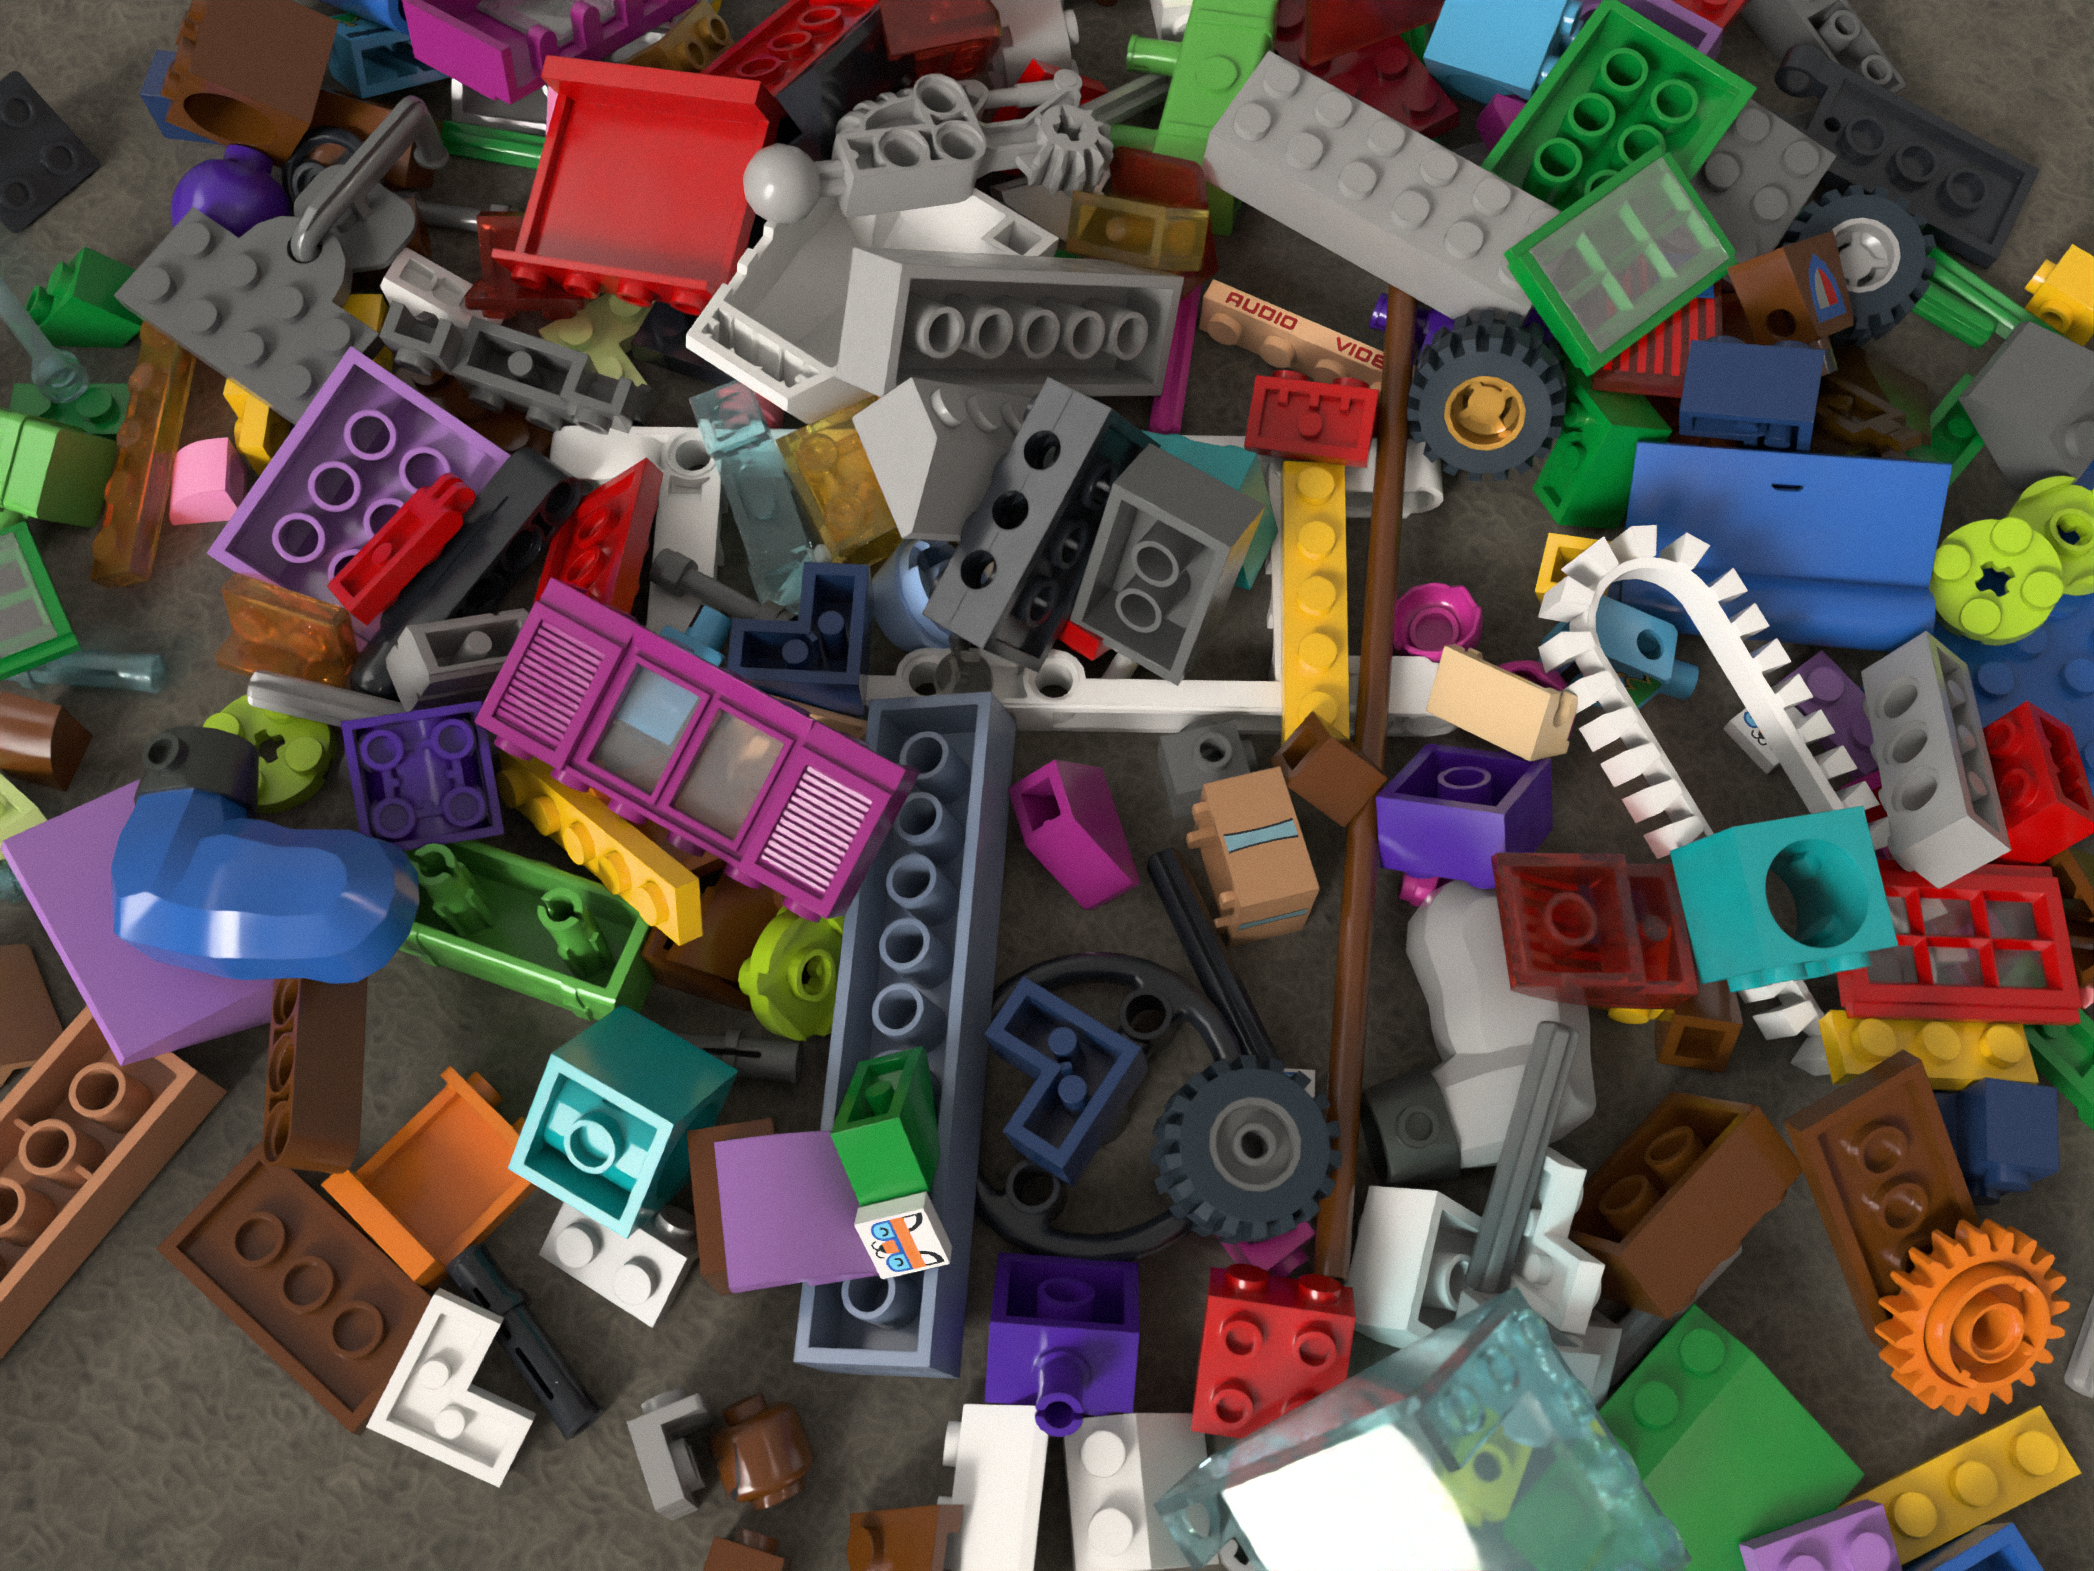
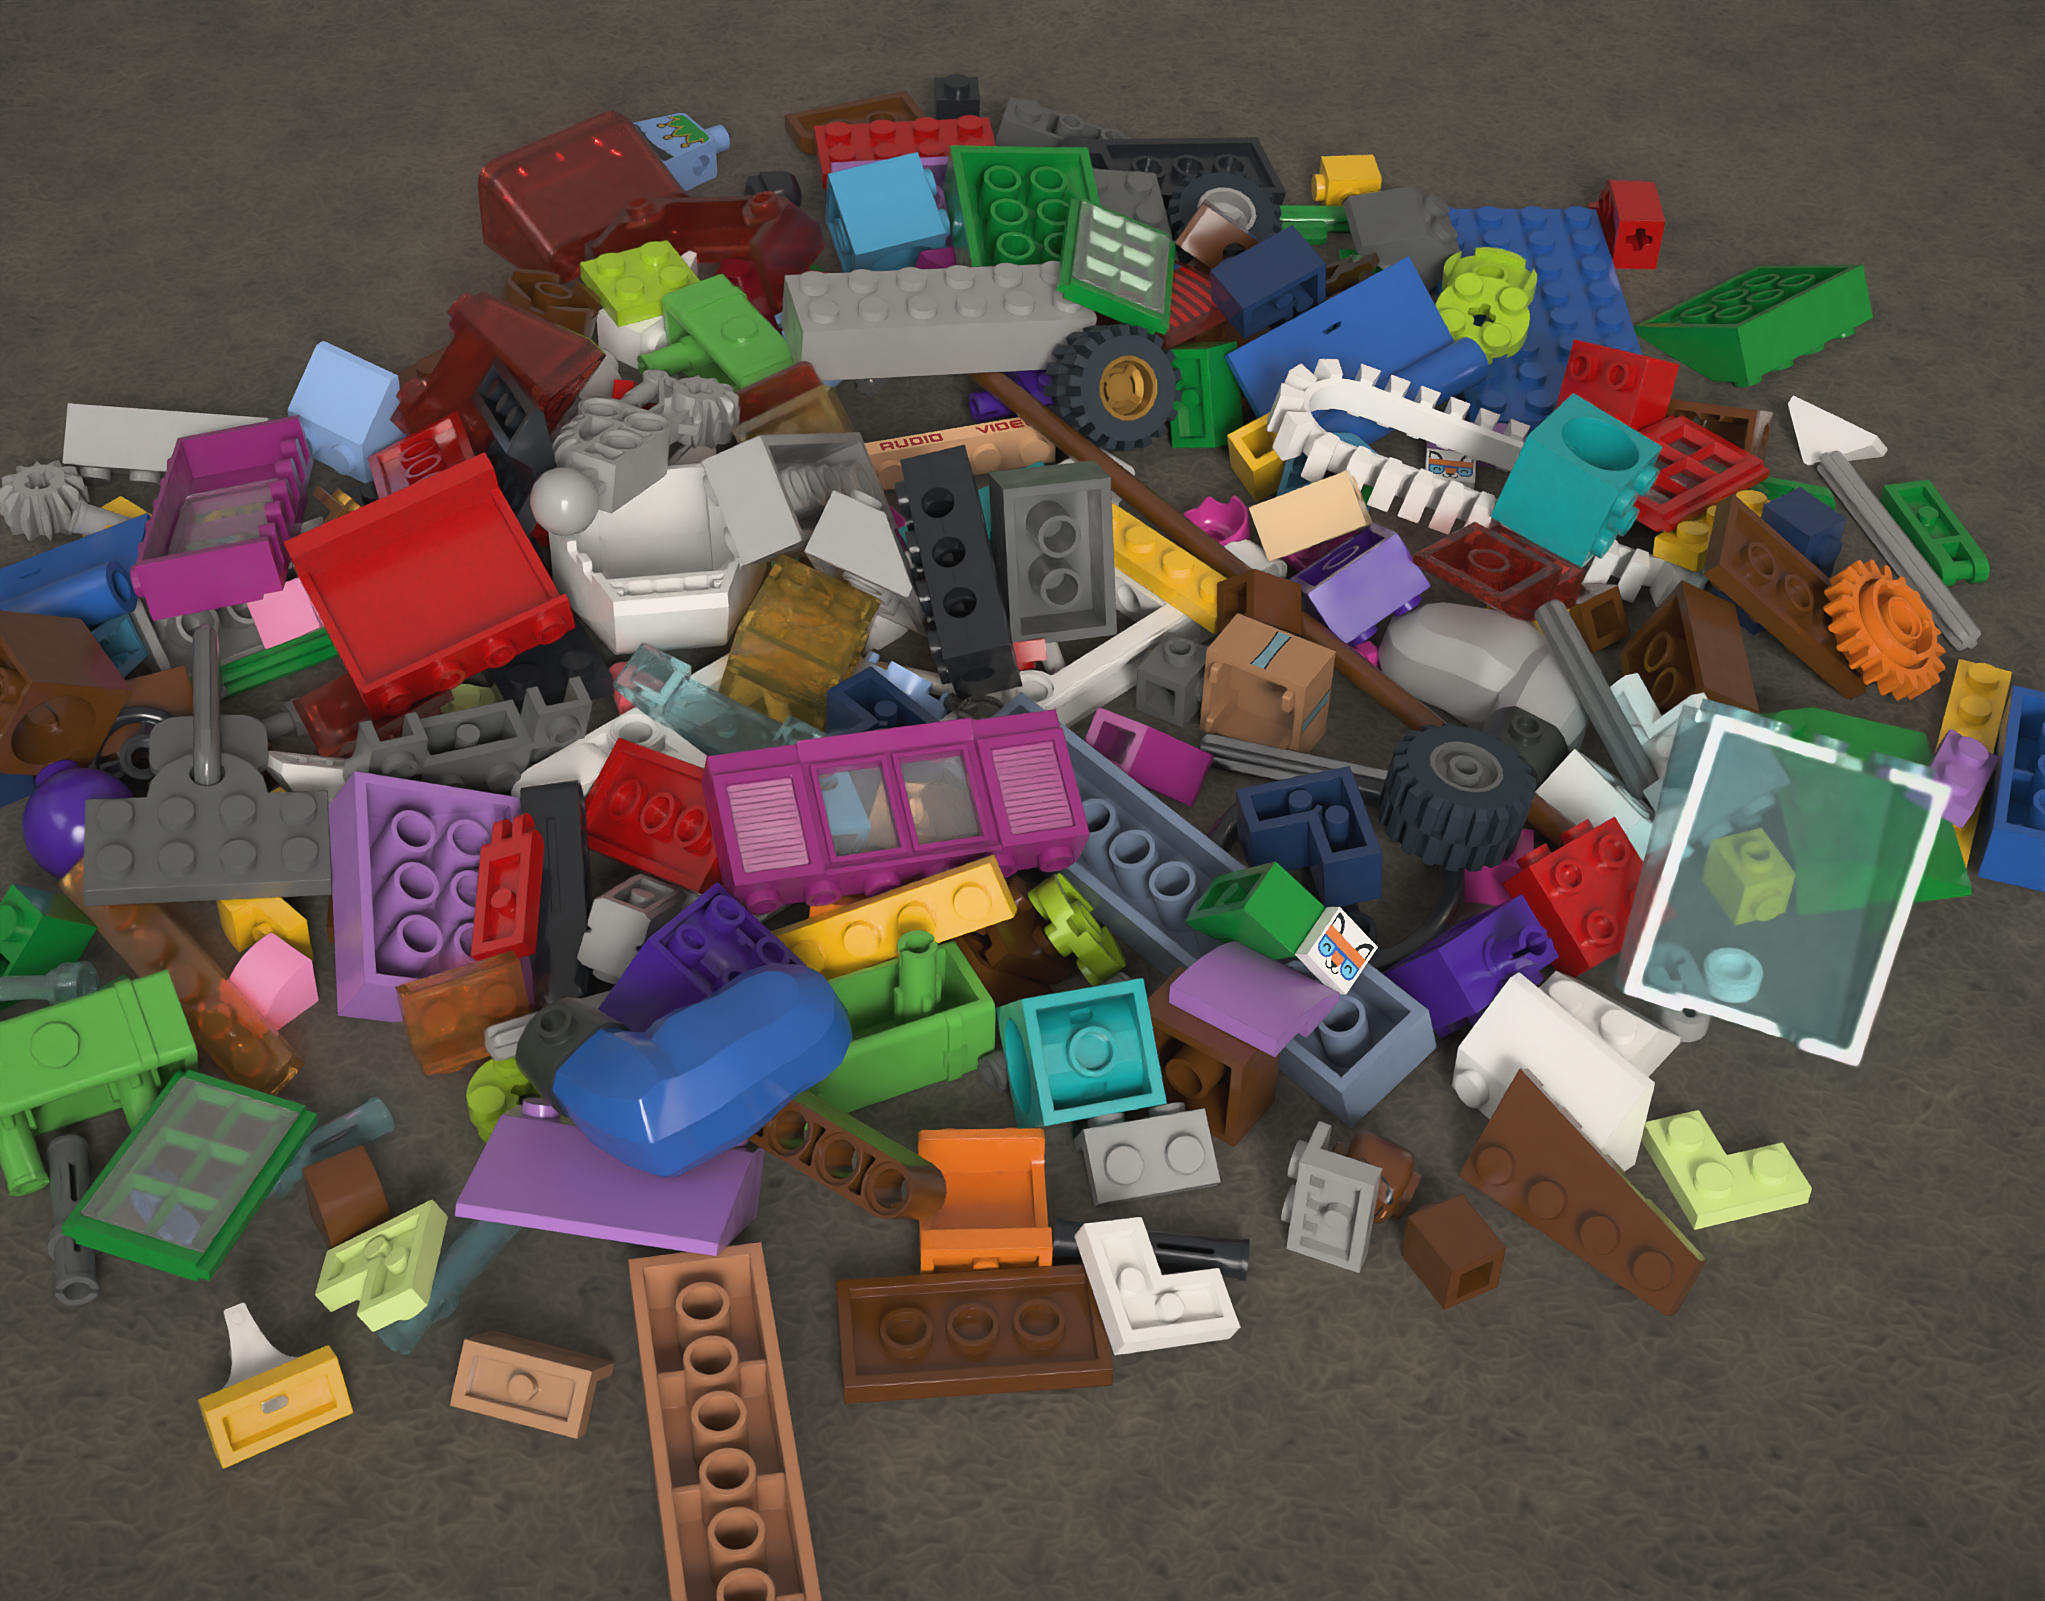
camera: 45 degrees left, 25 degrees down
(1312, 419) = (1033, 440): red bracket -> none
(1933, 762) = (1536, 386): light grey brick -> none

